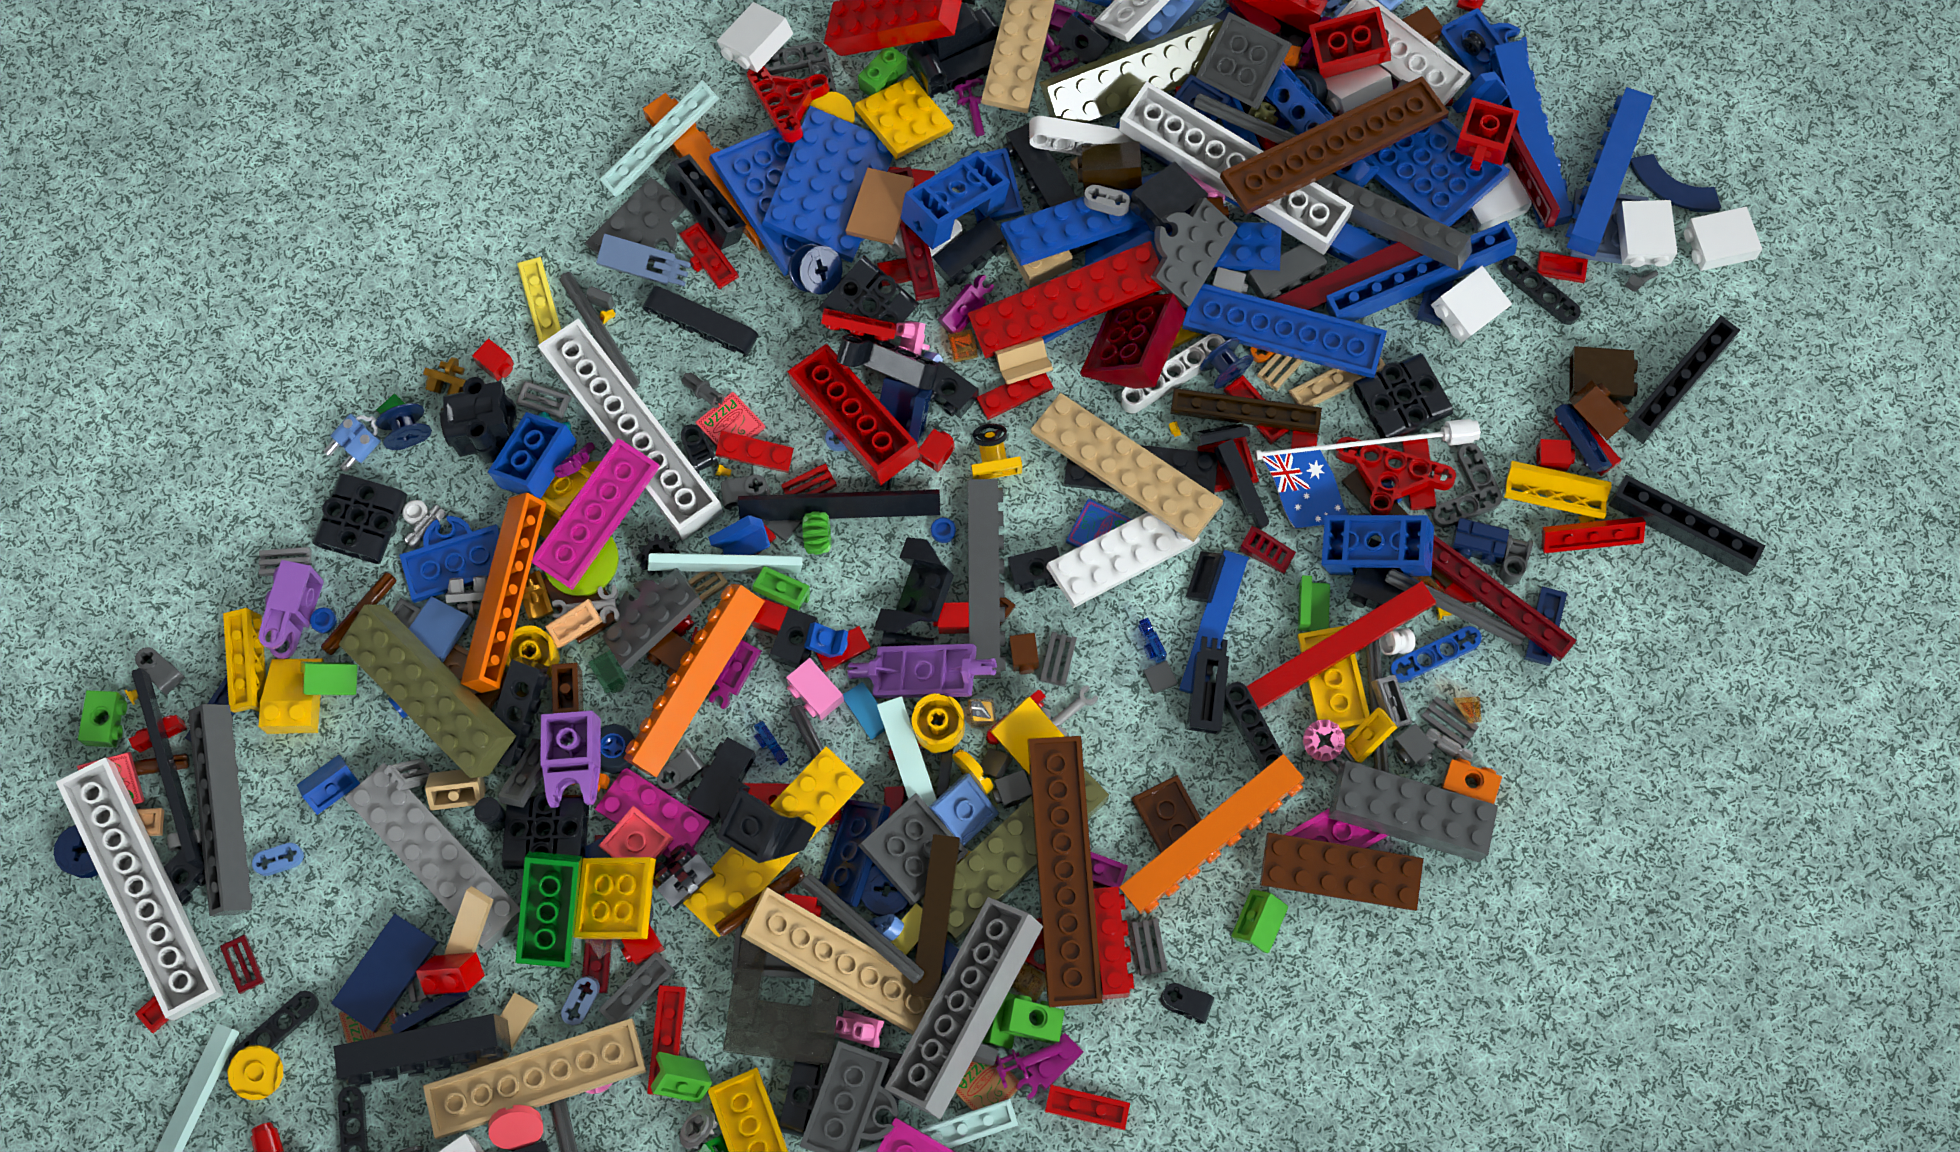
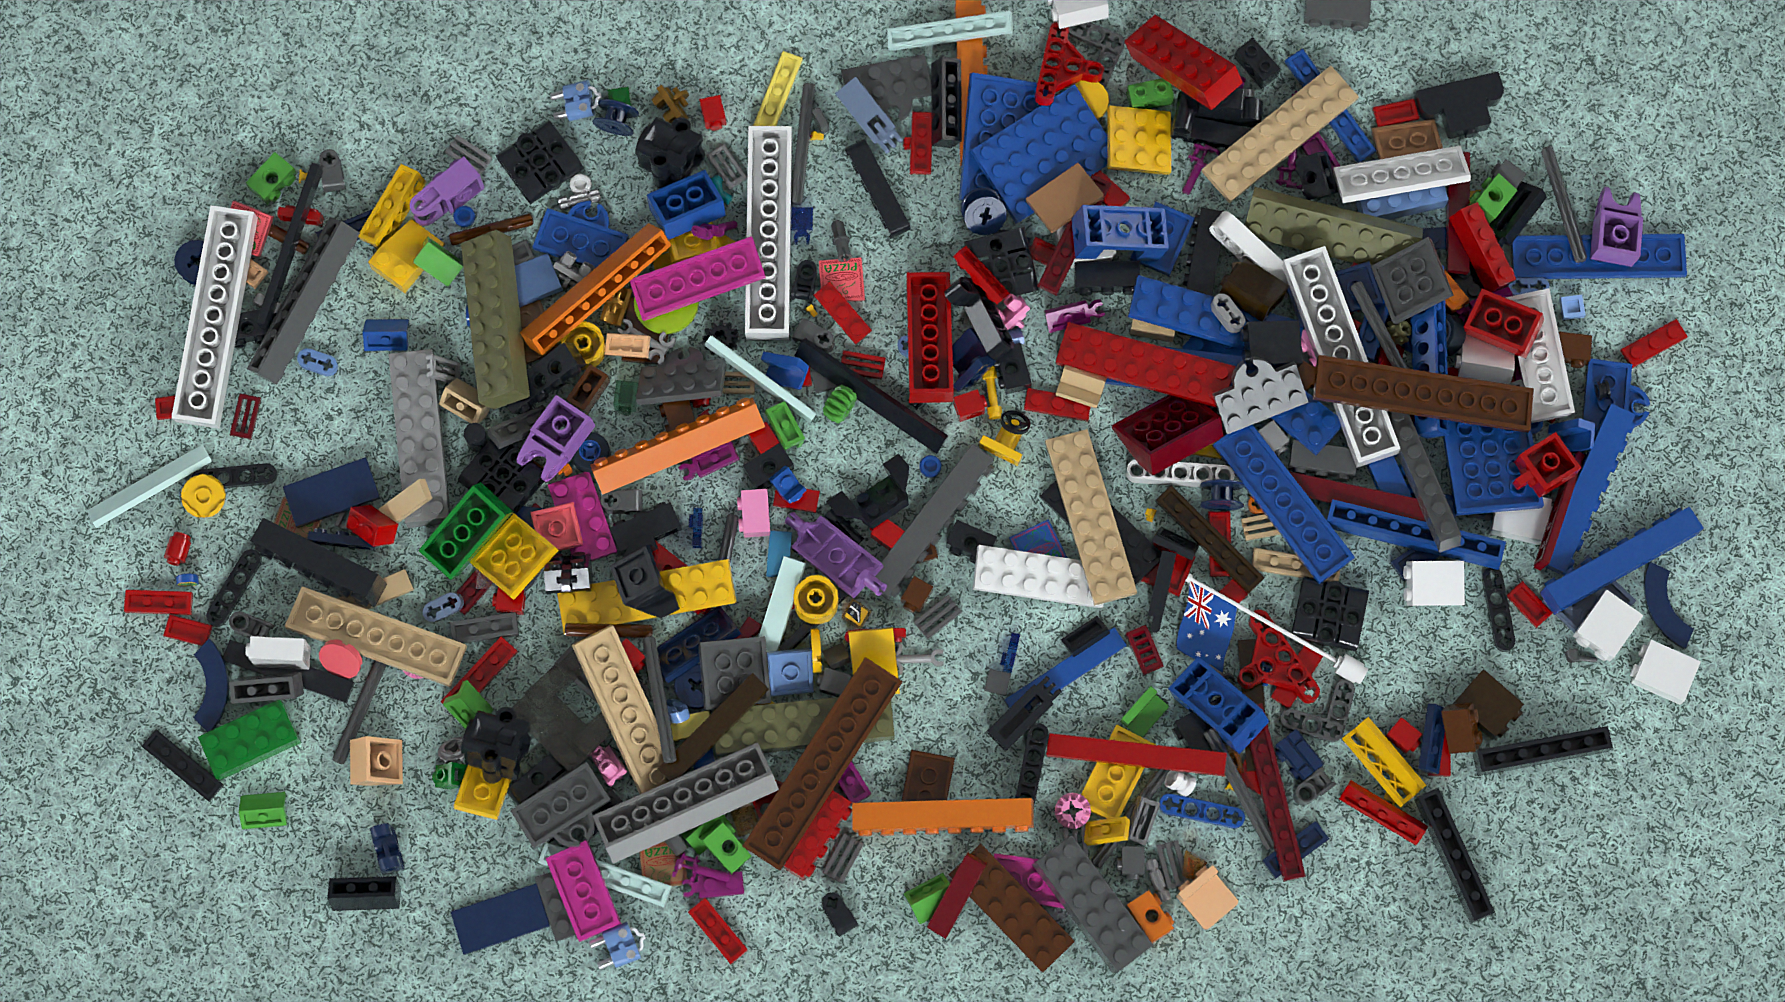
camera: 35 degrees right, 5 degrees up
(655, 399) = (802, 221): none -> clear blue plate
(736, 1091) = (496, 744): none -> black piece
(961, 439) = (994, 410): none -> yellow bar
(962, 346) = (1047, 342): clear orange slope -> none
(1285, 898) = (956, 895): none -> dark red tile
(1505, 727) = (1207, 897): none -> light nougat bracket

